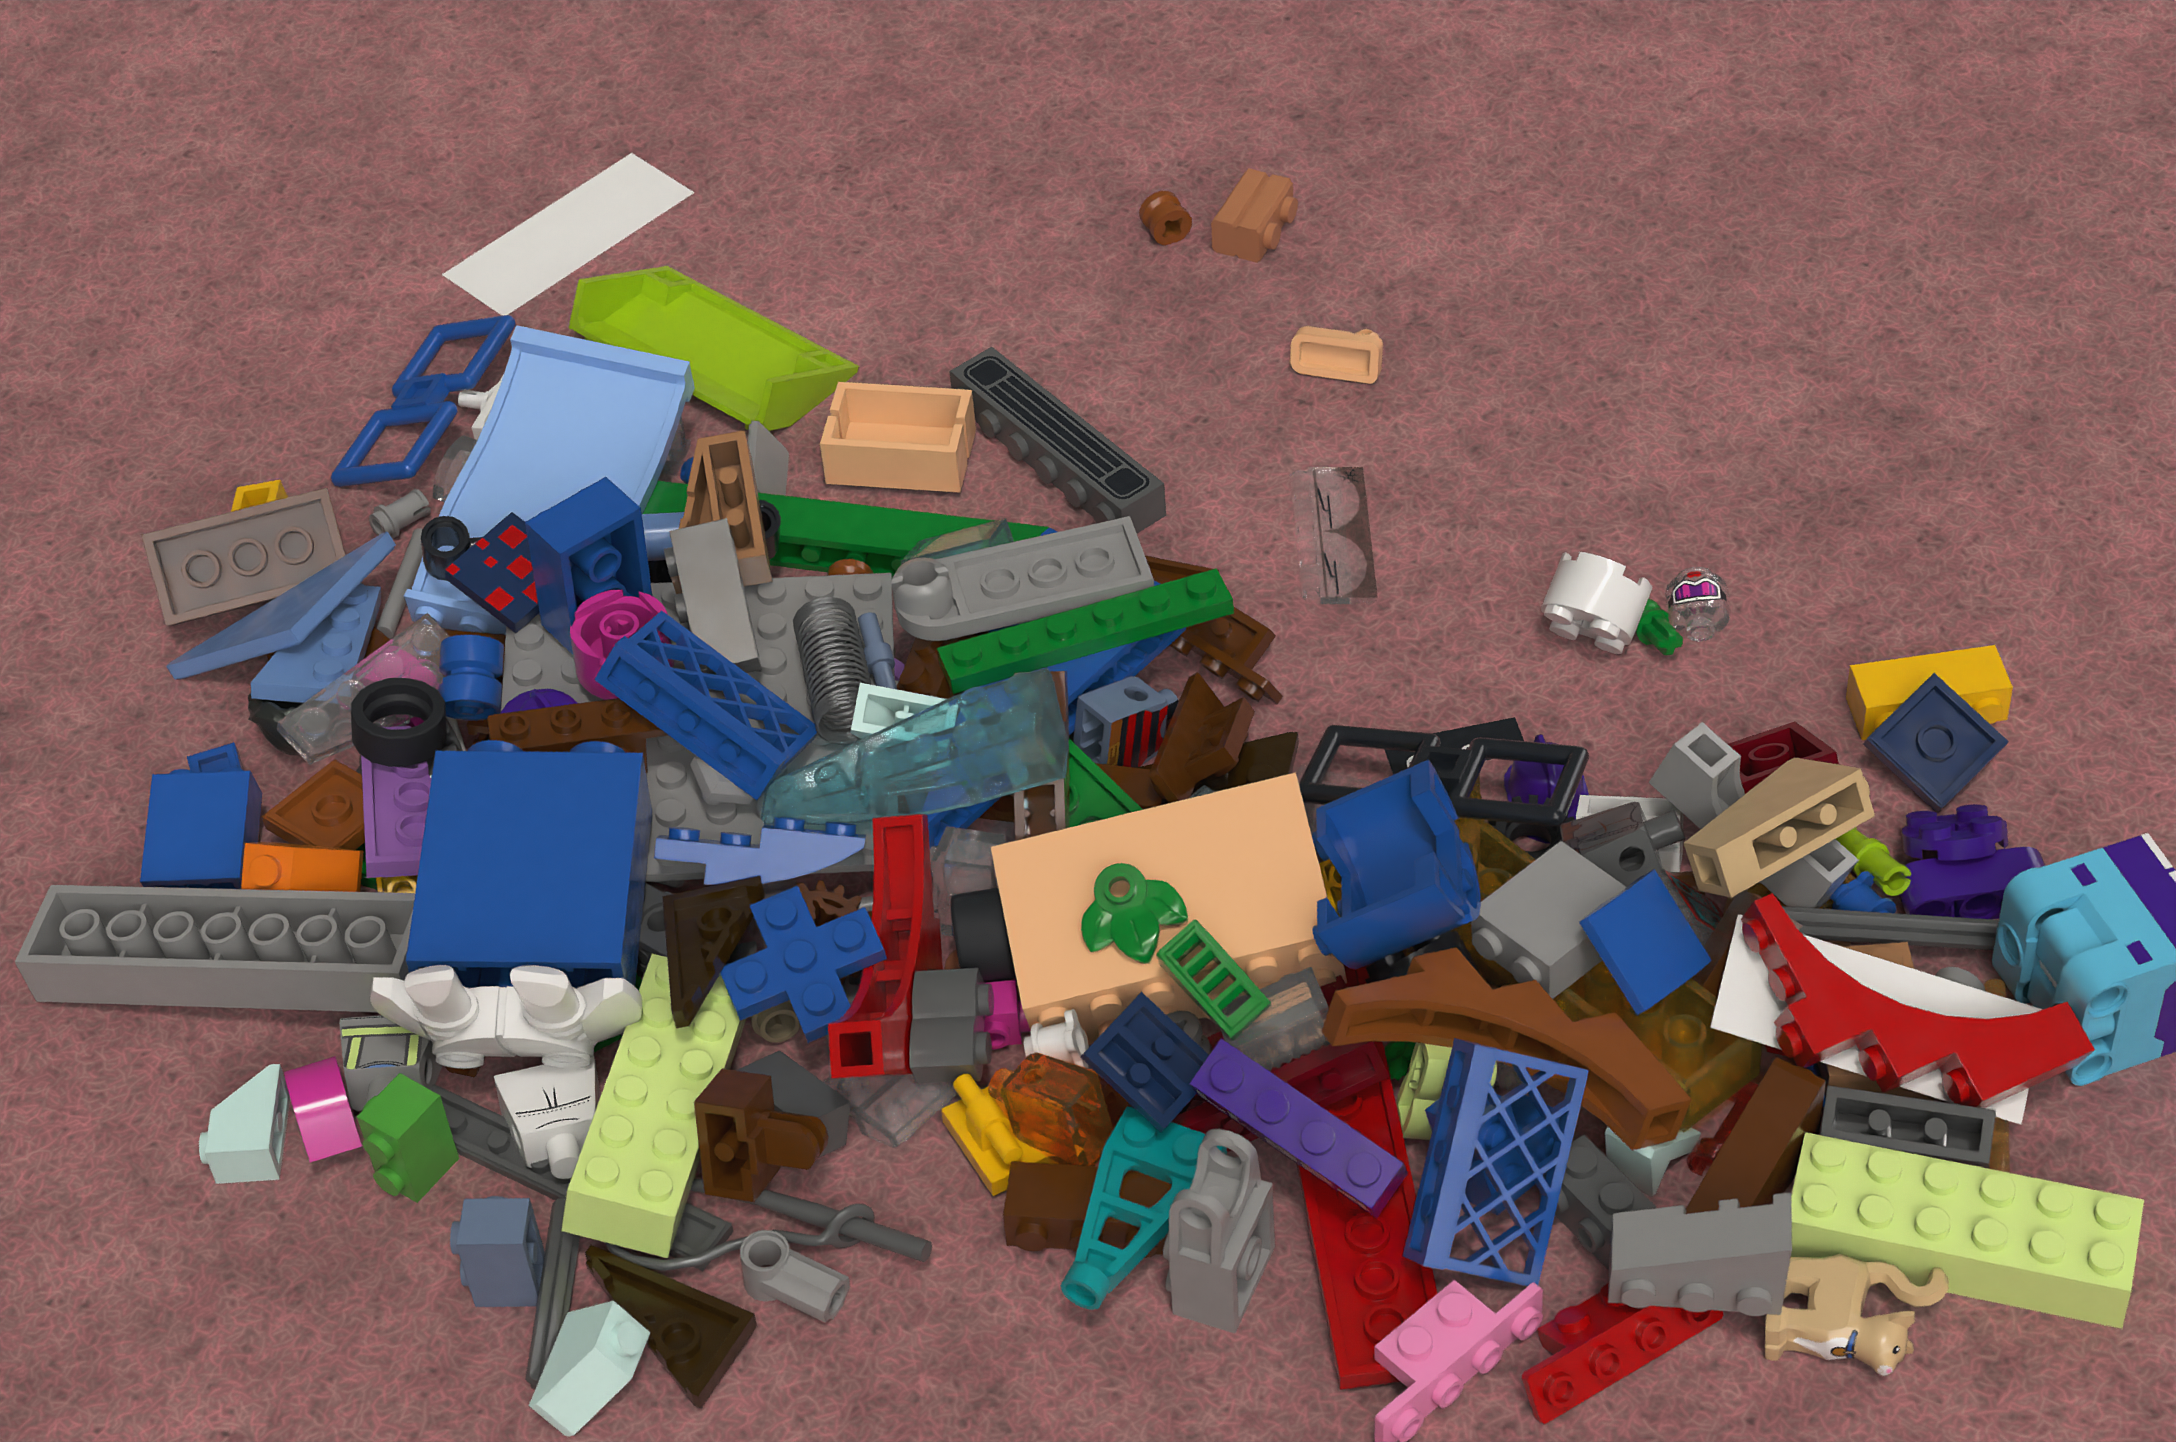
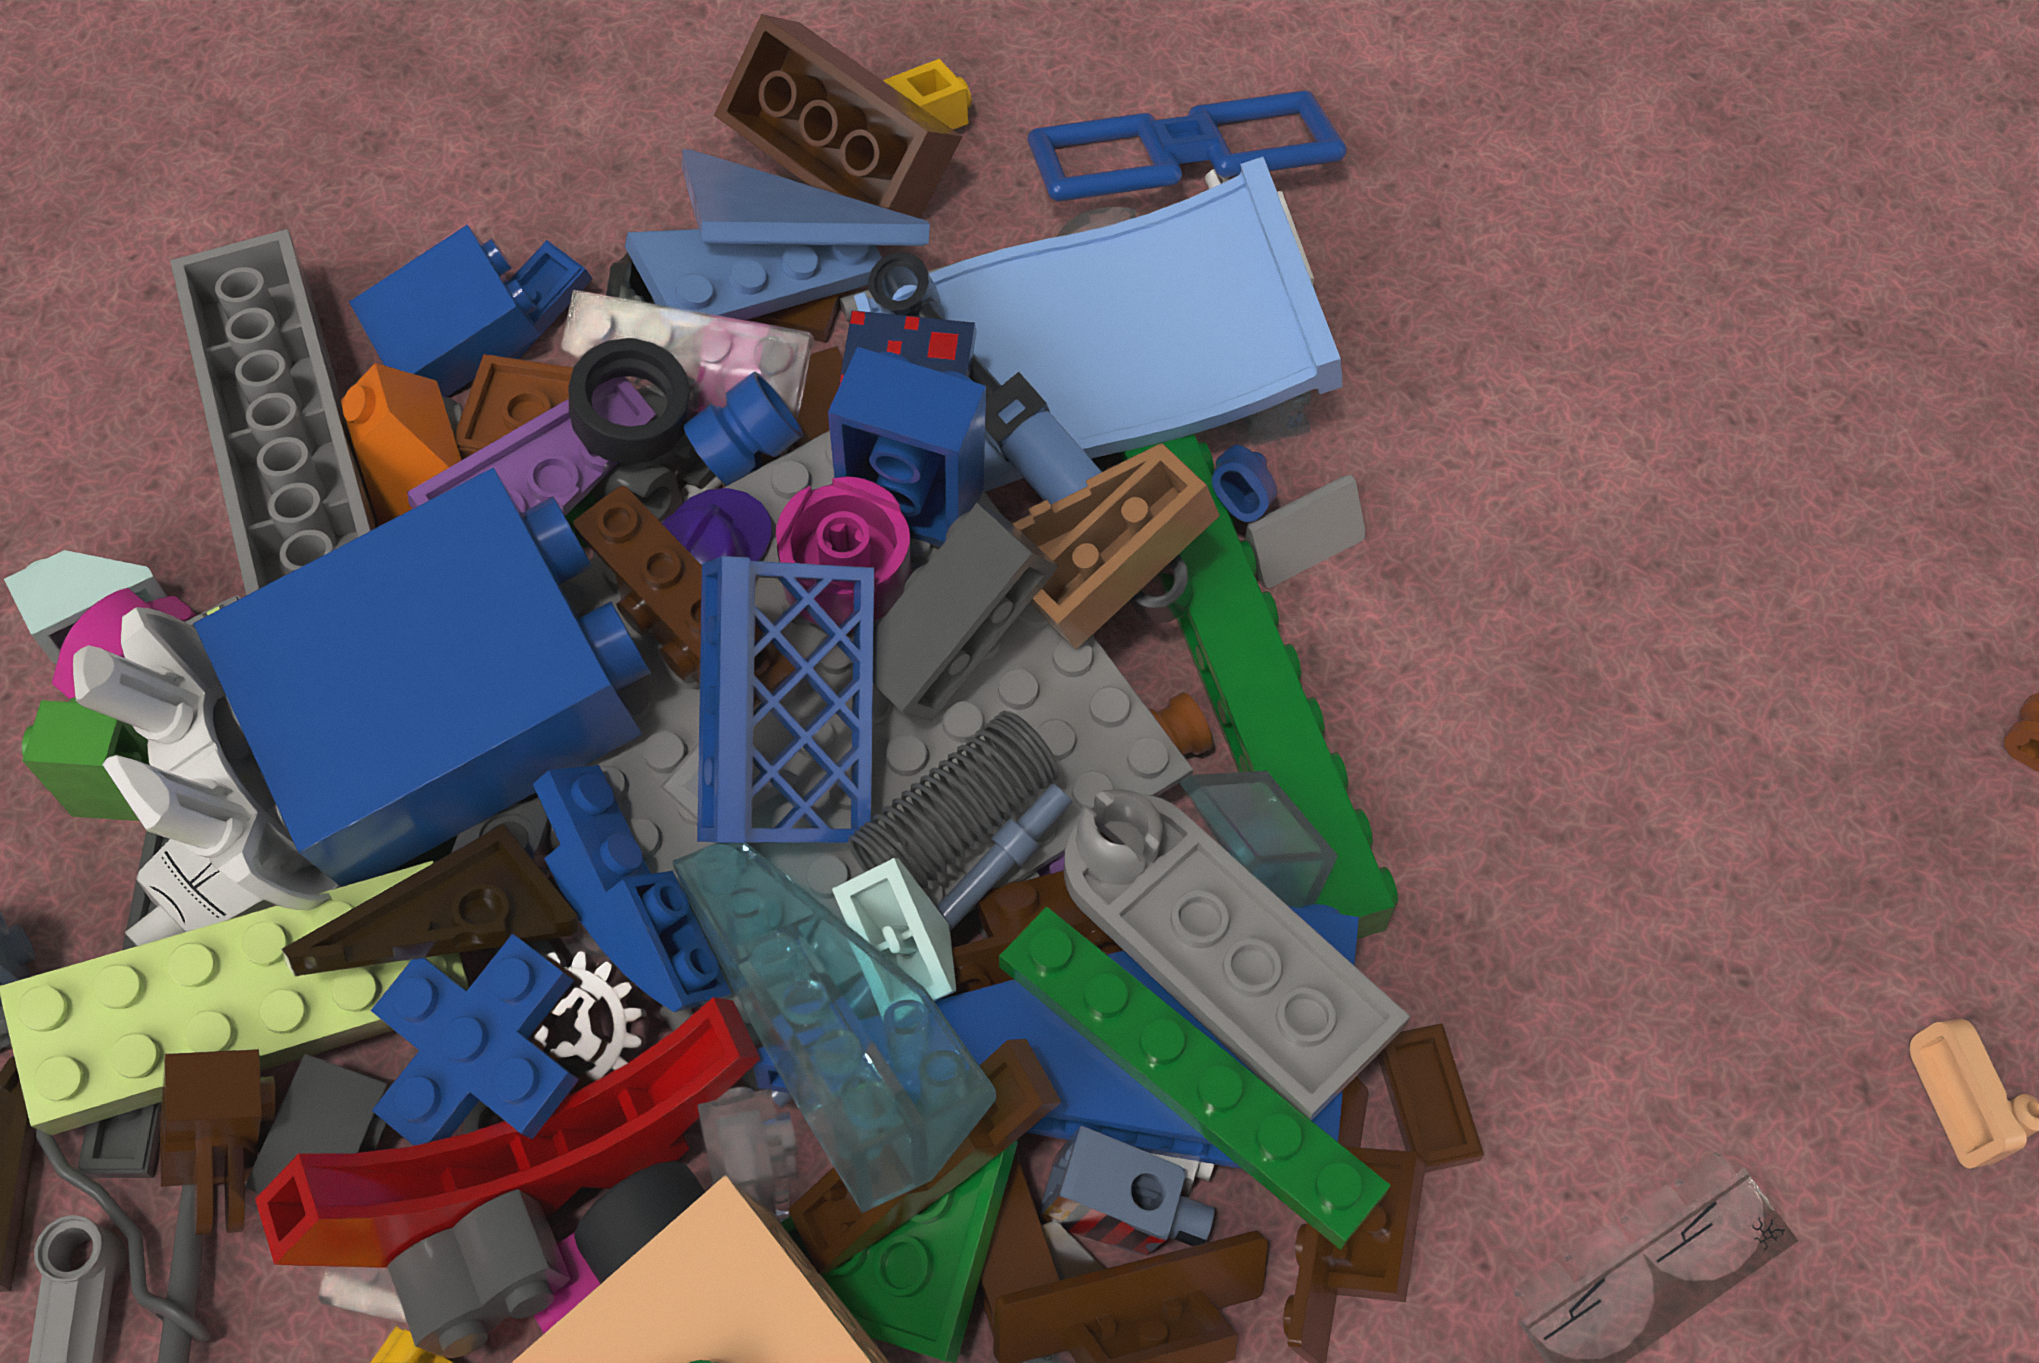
camera: 55 degrees right, 15 degrees up
(399, 513) = (1012, 220): light grey pin -> none
(567, 234) = (1546, 129): white sticker -> none
(734, 353) = (1462, 365): lime slope -> none
(898, 437) = (1439, 645): light nougat piece -> none
(1059, 443) = (1561, 835): dark grey brick -> none

